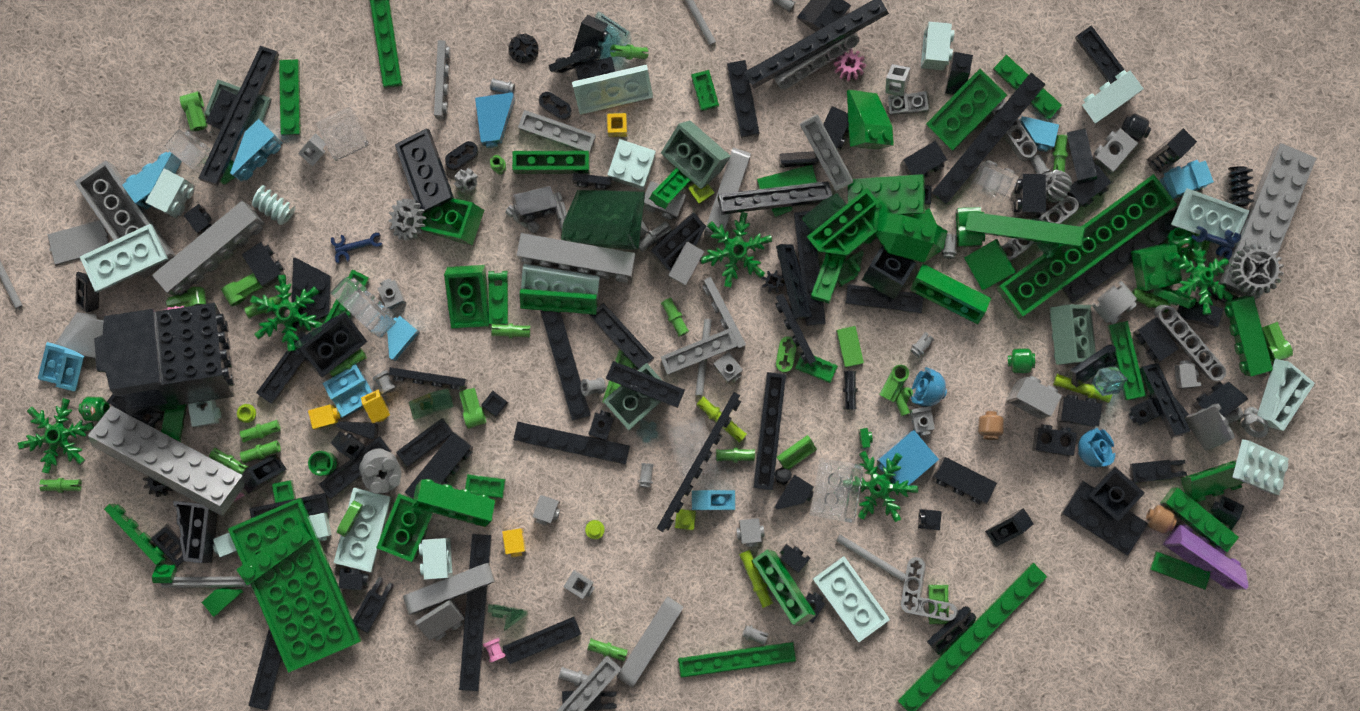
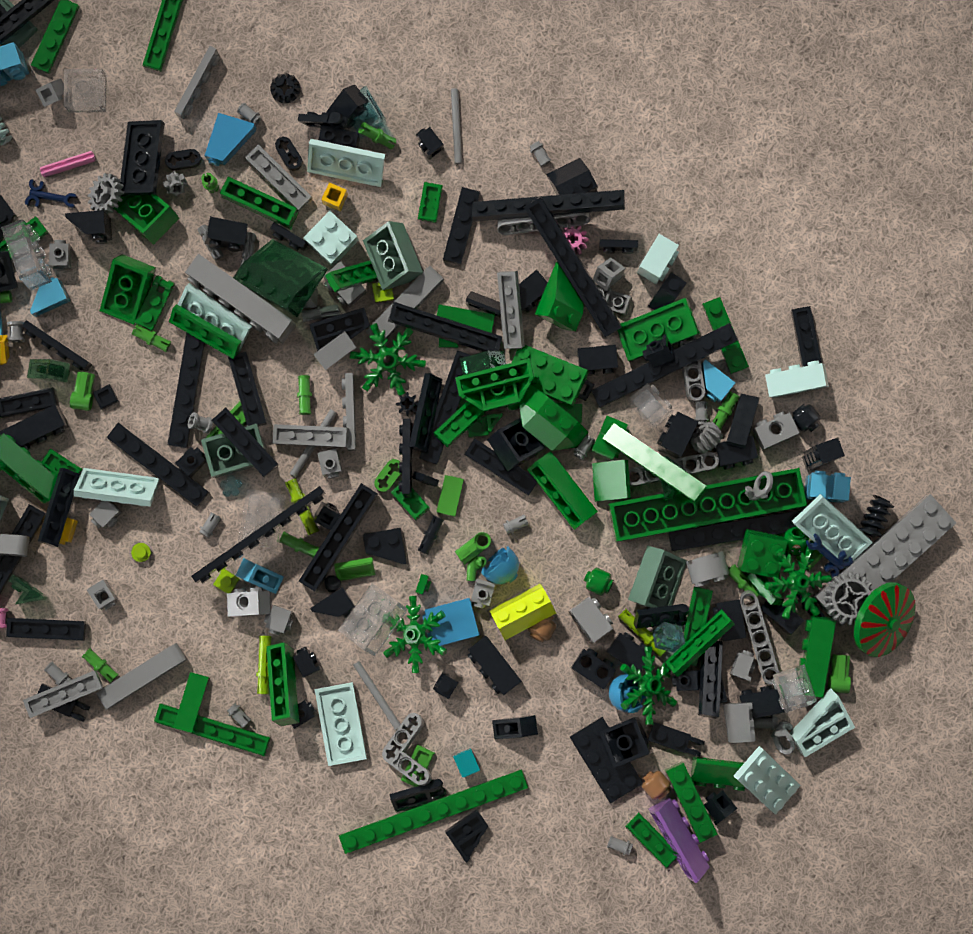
camera: 25 degrees right, 0 degrees up
(357, 208) = (67, 164): none -> bright pink axle
(408, 253) = (93, 224): none -> black slope
(503, 523) = (58, 507): none -> black plate
(545, 480) = (116, 487): none -> light aqua plate
(678, 36) = (429, 142): none -> black brick
(706, 644) = (191, 703): none -> green tile
(725, 523) = (248, 603): none -> light grey brick
(749, 416) = (326, 515): none -> black brick
(814, 418) = (386, 545): none -> black wing
(822, 341) = (423, 478): none -> black tile
(864, 87) = (573, 266): none -> black plate
(901, 48) = (610, 246): none -> black plate
(967, 419) = (522, 611): none -> neon yellow slope
(979, 128) = (659, 352): none -> black brick
(982, 579) = (466, 762): none -> teal panel
(1013, 643) = (467, 833): none -> black wing
(1113, 432) = (648, 686): none -> green piece
(1126, 213) = (756, 492): none -> light grey piece
(1140, 372) = (699, 643): none -> green plate
(1154, 589) = (620, 845): none -> light grey pin
(1246, 373) = (794, 688): none -> clear brick
(1295, 273) = (884, 619): none -> dish

